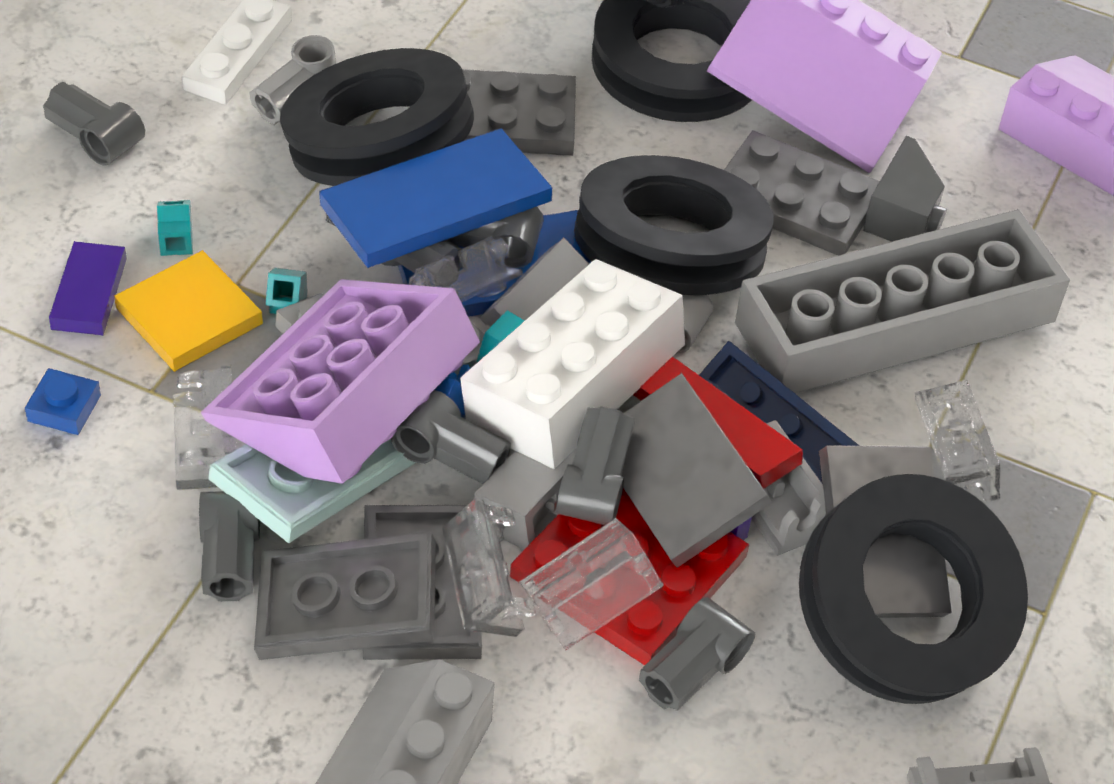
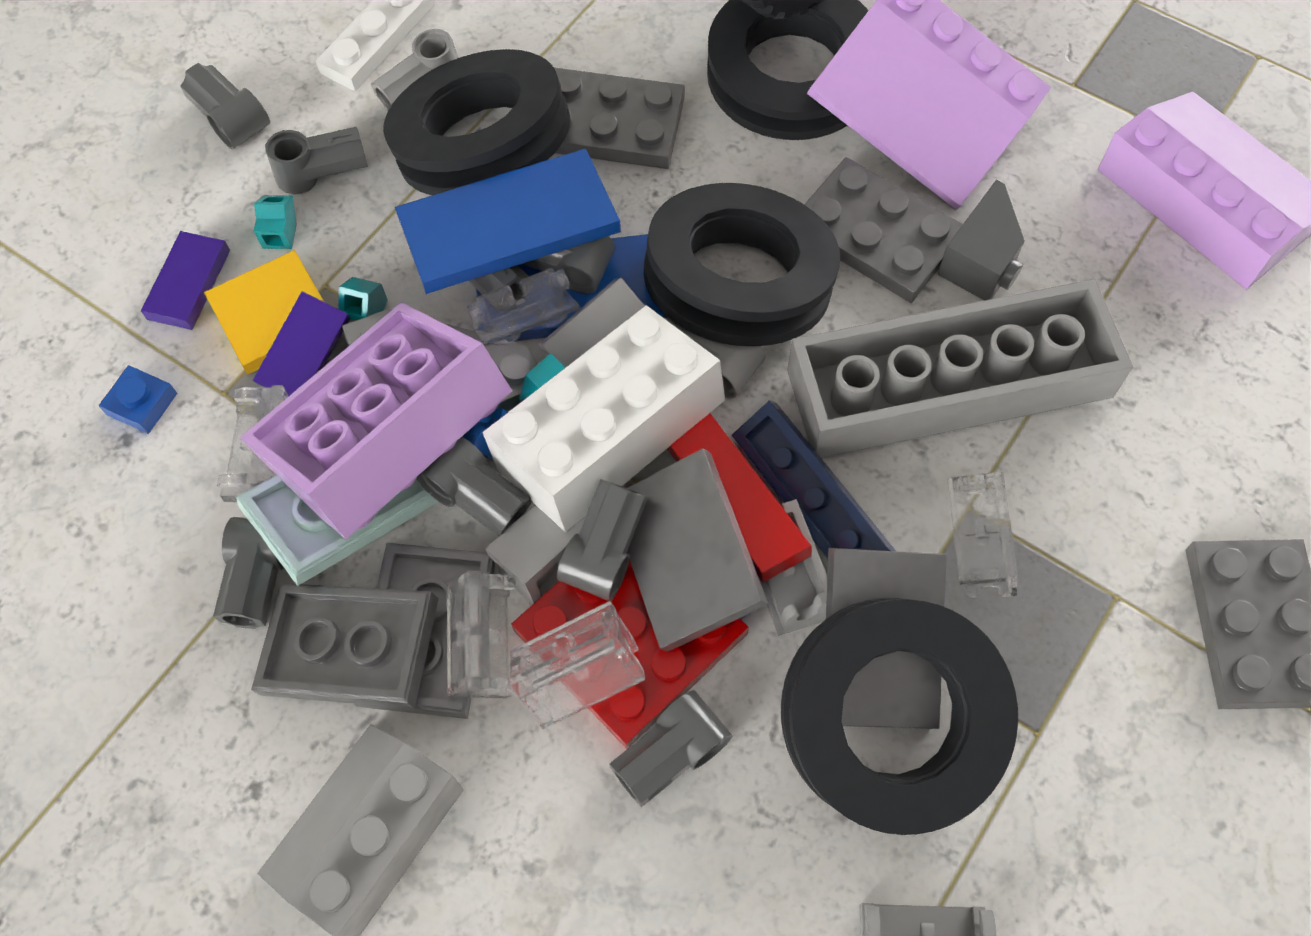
camera: 15 degrees right, 15 degrees up
(191, 165) = (302, 160): none -> dark grey piece
(237, 329) = (302, 344): none -> dark purple tile

